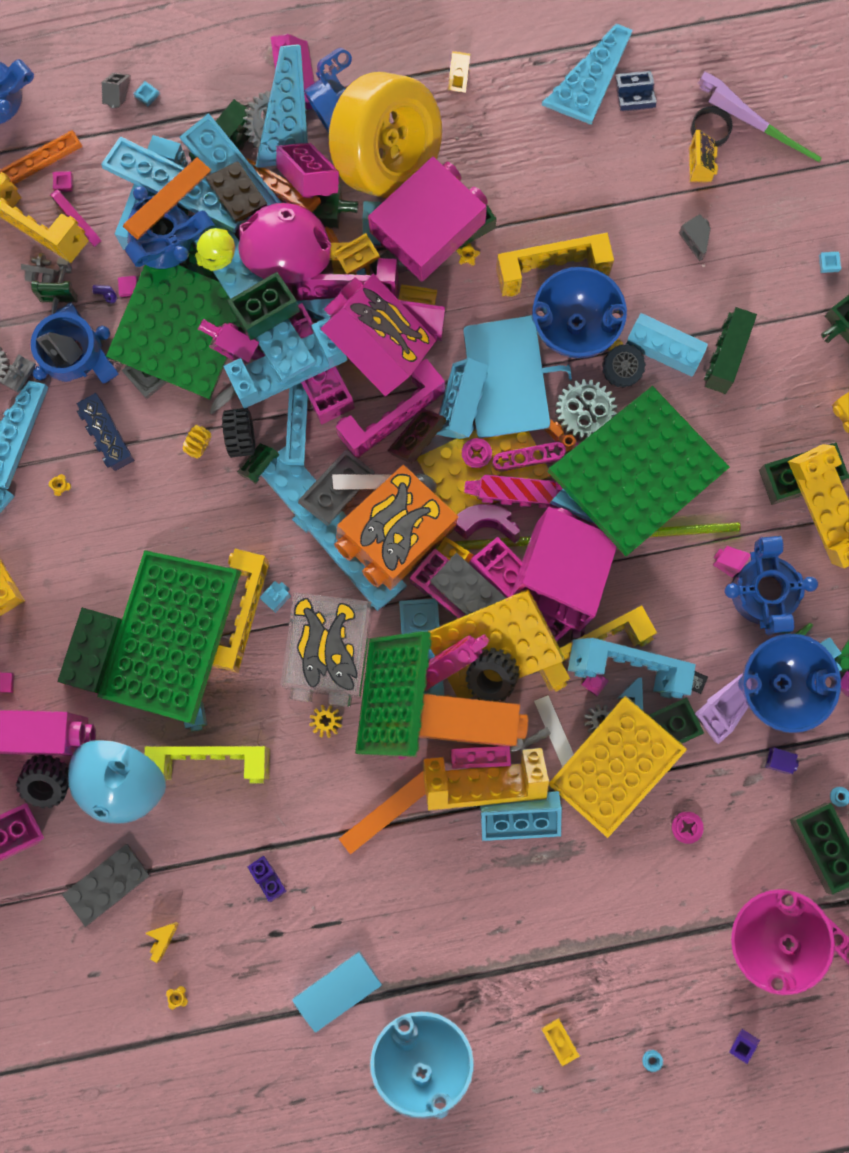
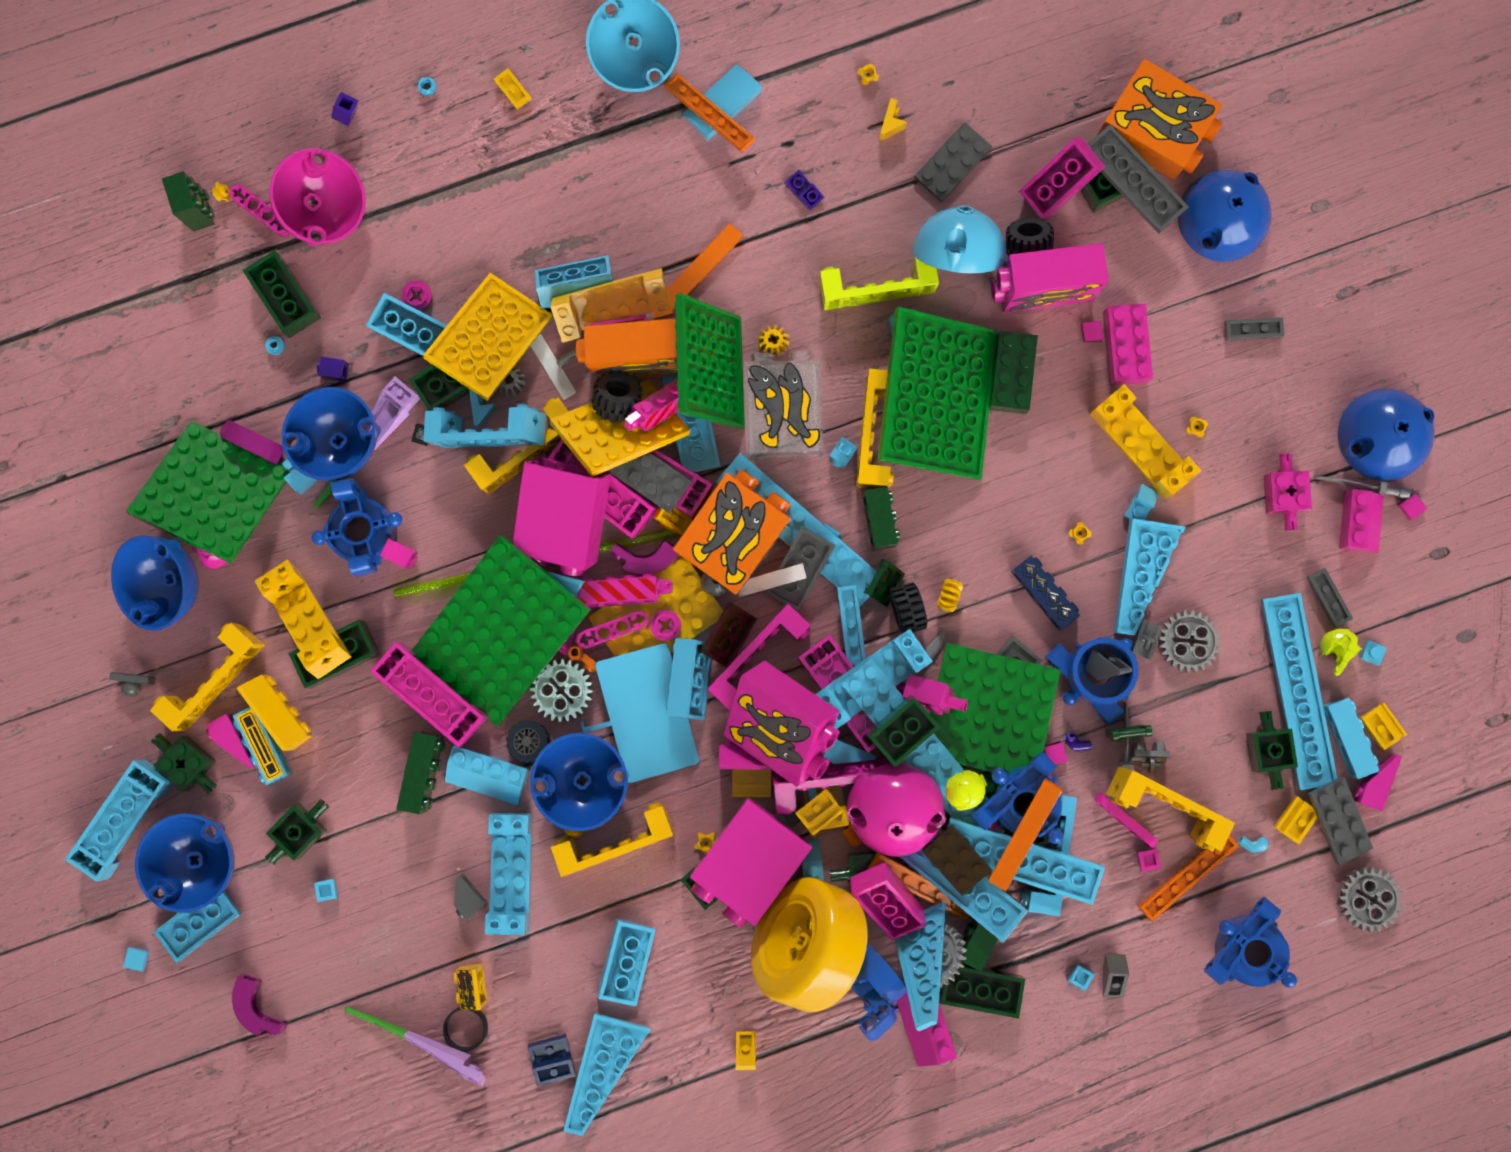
camera: 170 degrees right, 5 degrees up
(223, 84) = (985, 991): none -> dark green brick
(250, 522) = (880, 518): none -> dark green brick
(352, 977) = (709, 113): none -> orange tile
(557, 162) = (625, 962): none -> medium azure slope
(655, 250) = (509, 873): none -> medium azure plate
(700, 792) = (404, 324): none -> medium azure slope
(716, 419) = (429, 695): none -> dark pink plate

